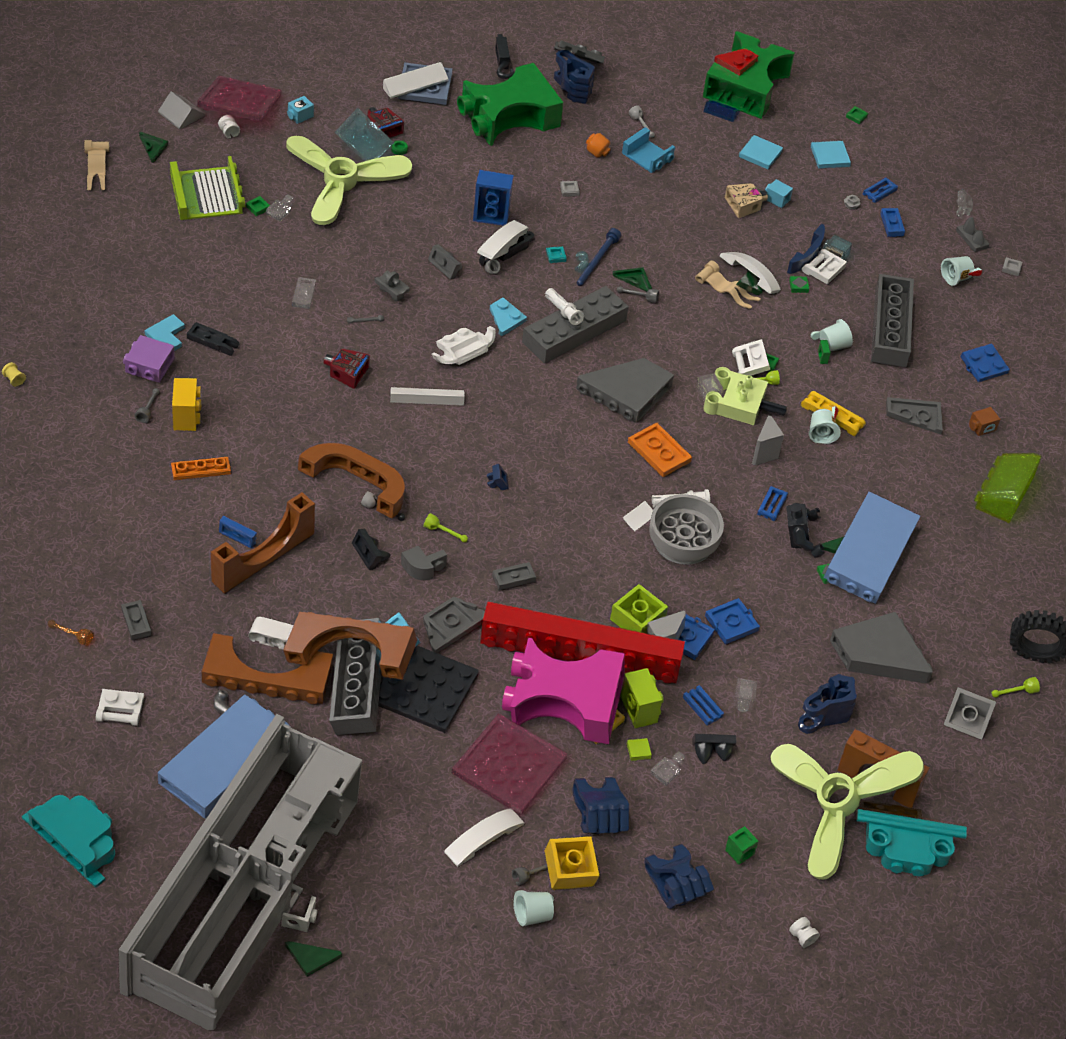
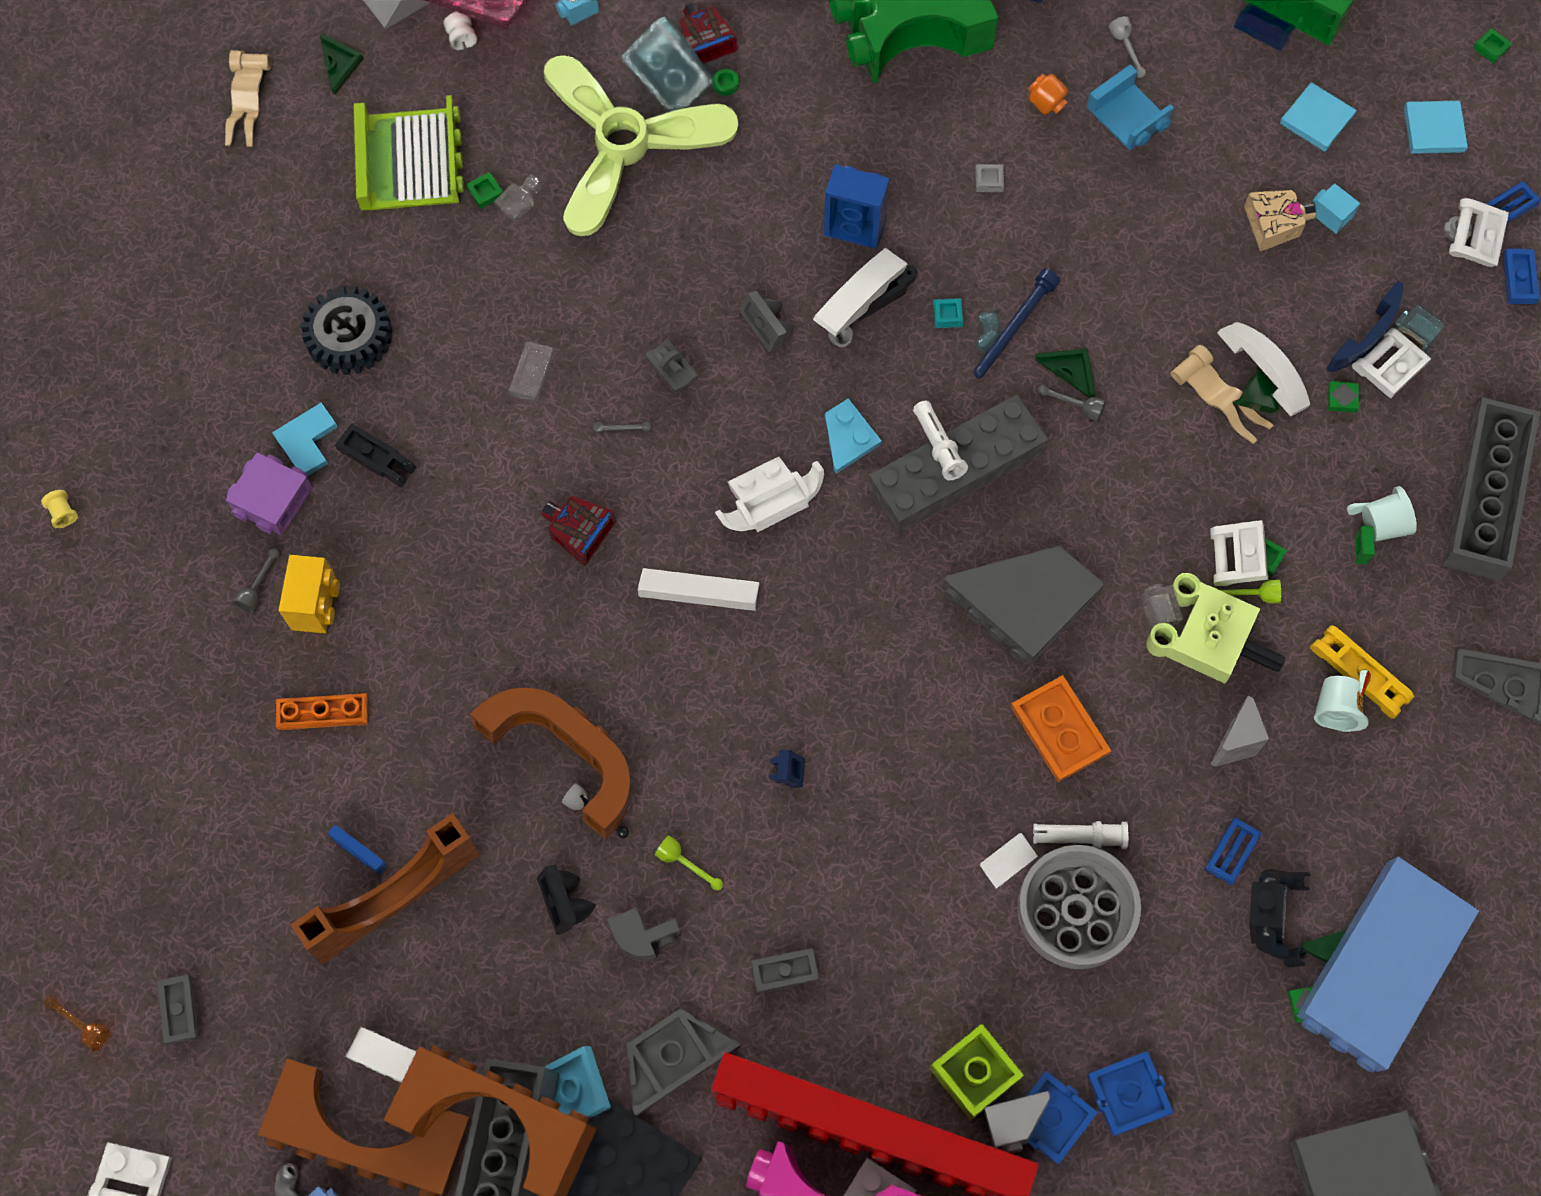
camera: 15 degrees right, 20 degrees up
(183, 284) = (340, 348): none -> wheel
(869, 201) = (1487, 233): none -> white plate

